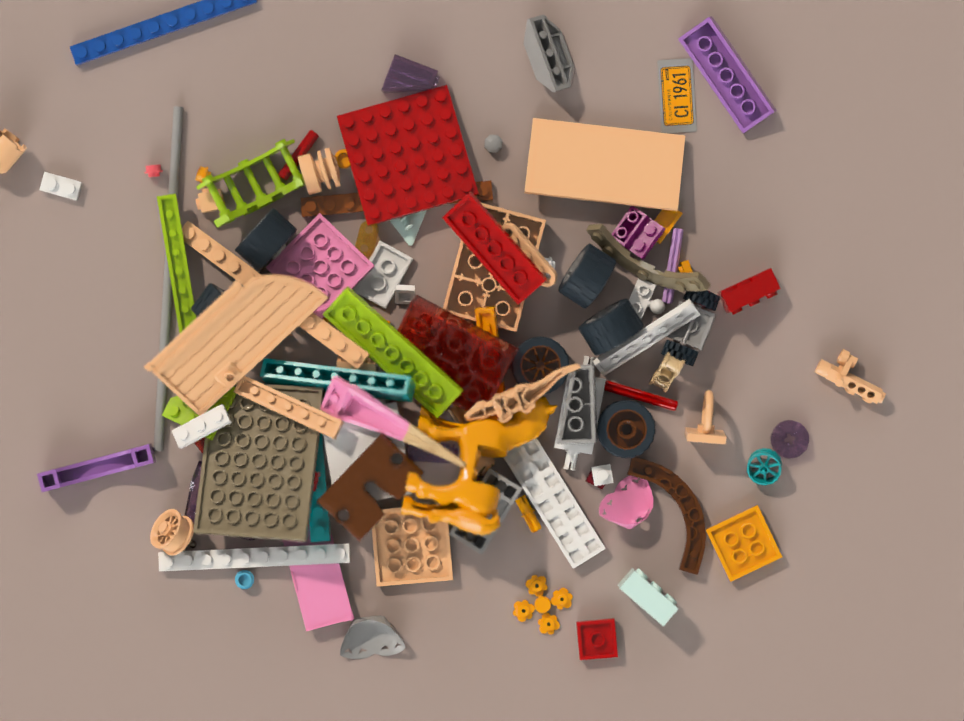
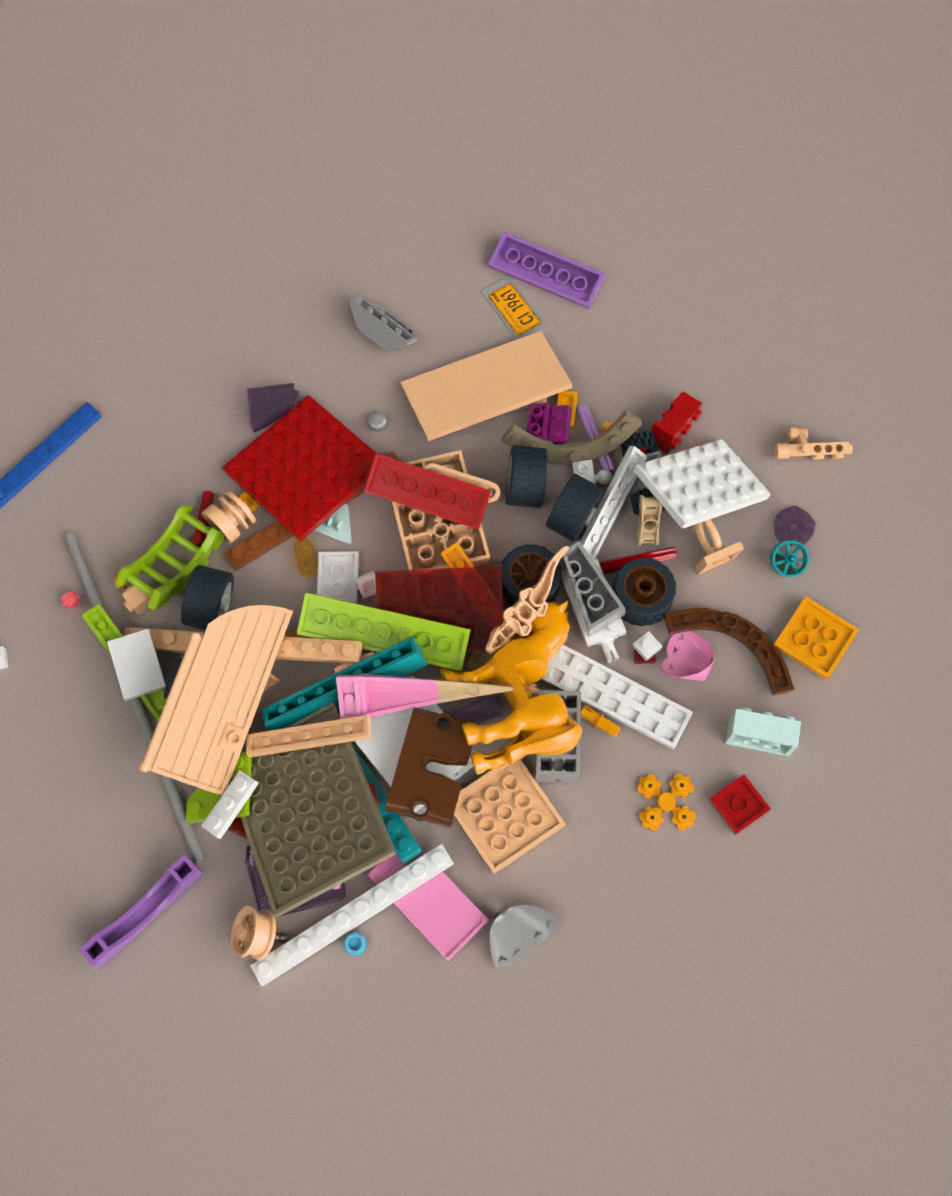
camera: 30 degrees left, 20 degrees down
(182, 265) = (136, 664): none -> white tile
(323, 259) = (277, 585): bright pink plate -> none
(729, 365) = (701, 483): none -> white plate

